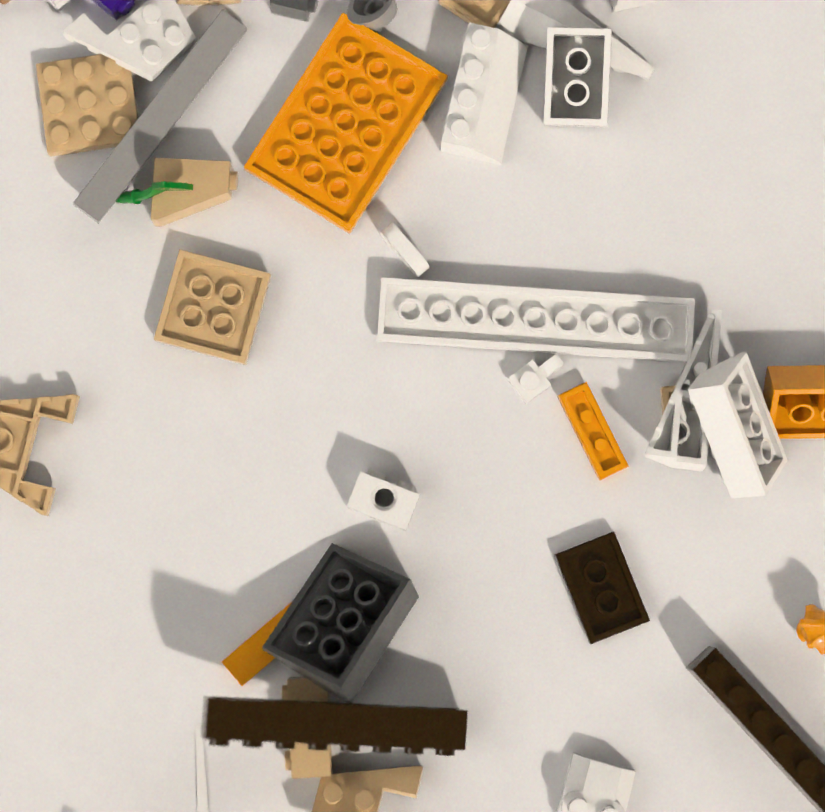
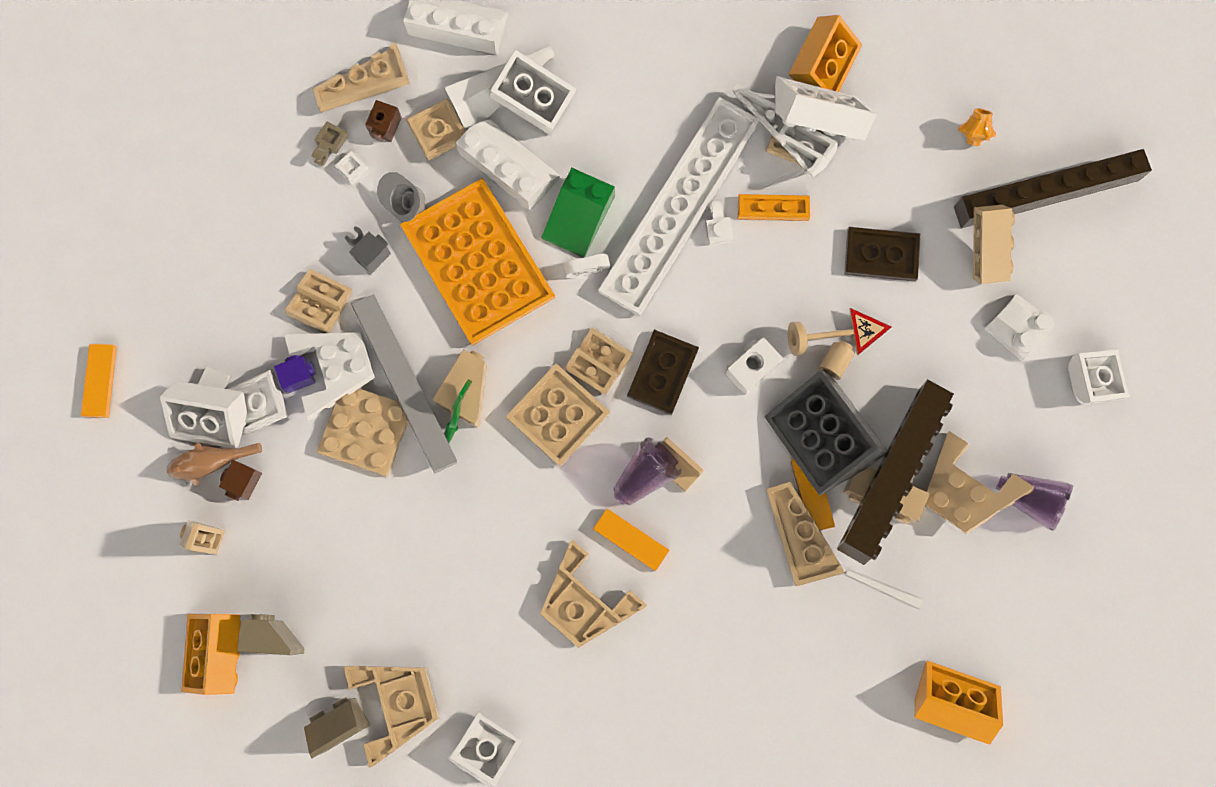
camera: 60 degrees left, 5 degrees down
(112, 462) = (631, 539): none -> light orange tile
(194, 440) = (646, 472): none -> clear purple cone
(208, 653) = (803, 542): none -> tan wing
(222, 469) = (690, 469): none -> tan panel
(300, 321) = (599, 361): none -> tan slope
(325, 400) = (662, 372): none -> dark brown tile
(440, 594) = (837, 359): none -> tan brick
(464, 207) = (578, 212): none -> green slope
(495, 610) = (864, 328): none -> tan piece
(675, 712) = (993, 244): none -> tan brick

